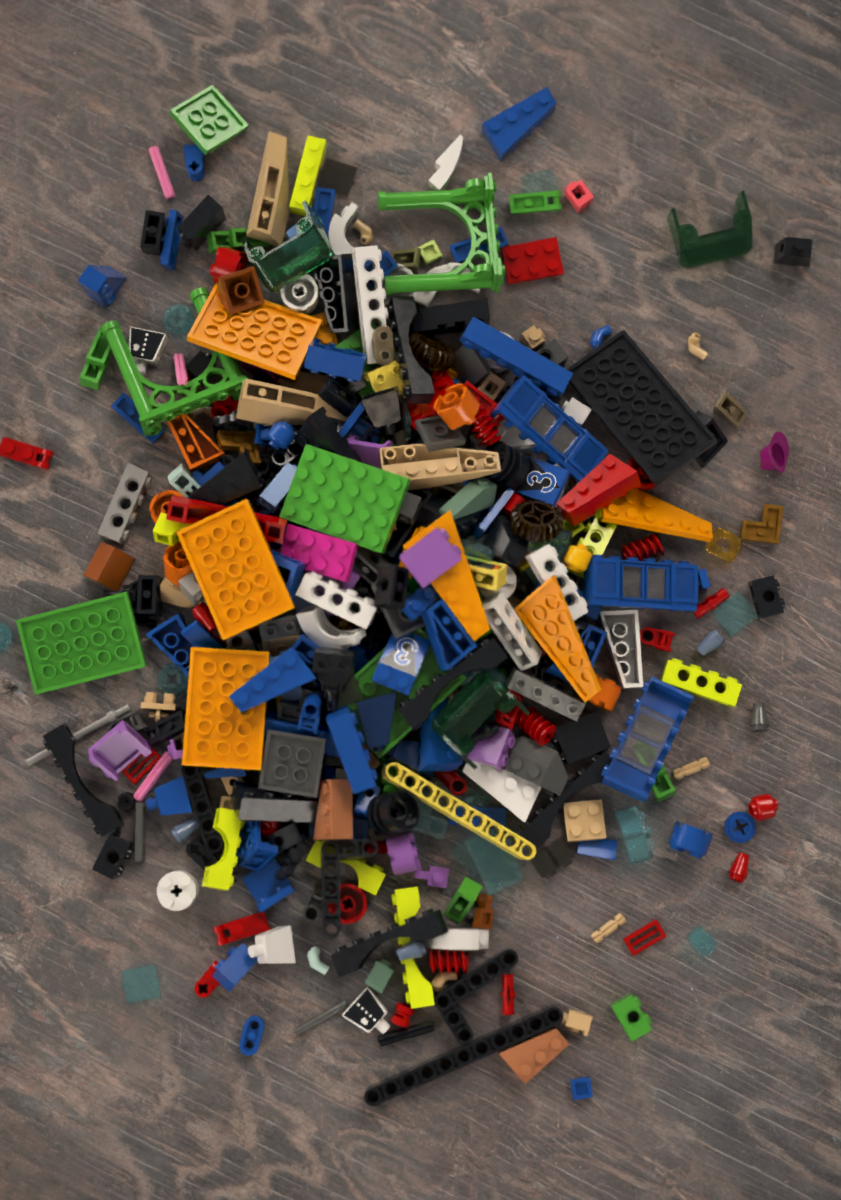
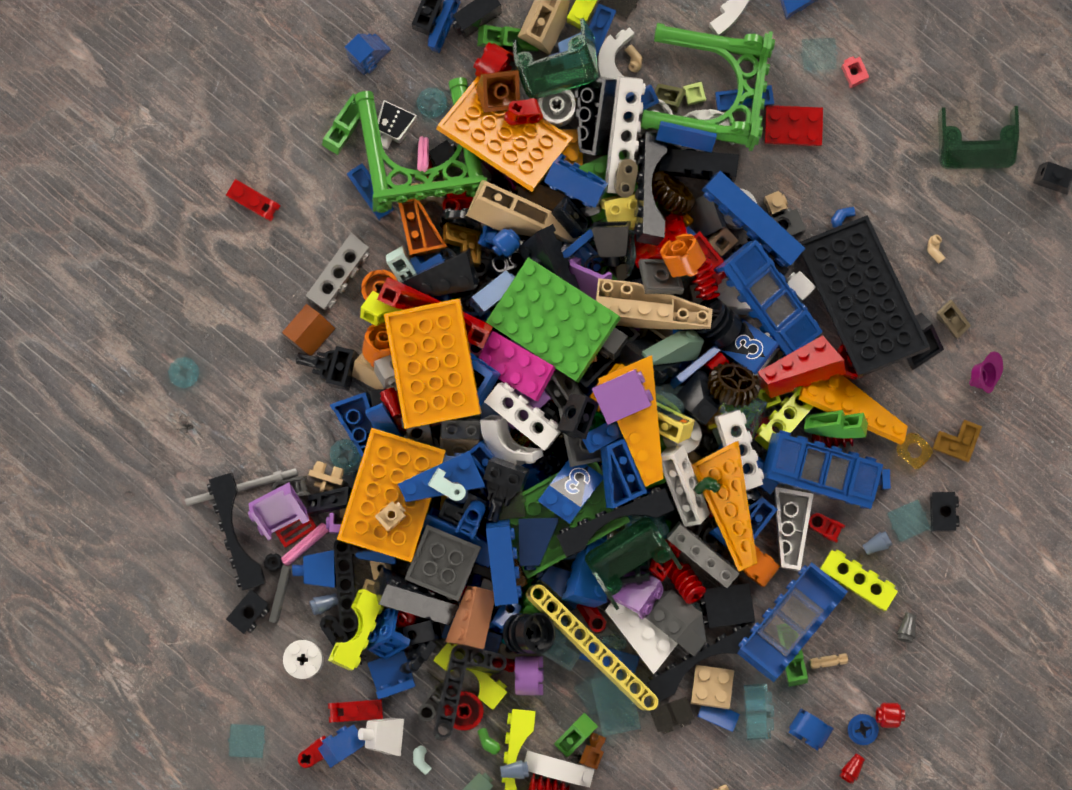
camera: 20 degrees right, 0 degrees up
(81, 643) = (265, 398): bright green plate -> none
(144, 622) = (325, 389): black axle -> none
(230, 737) = (390, 523): none -> tan brick
(270, 304) = (524, 112): none -> red piece
(285, 689) = (452, 490): none -> light aqua leg
(375, 925) = (487, 743): none -> bright green arm
(424, 928) = (456, 765): black arch -> none
(432, 292) = (686, 136): none -> blue tile
(436, 876) = (555, 706): medium lavender plate -> none
(534, 623) = (709, 484): none -> dark green arm
(535, 202) = (810, 68): bright green plate -> none
(577, 558) = (765, 430): yellow head -> none
(644, 537) = (837, 424): none -> bright green slope
(711, 602) = (888, 504): red pin -> none

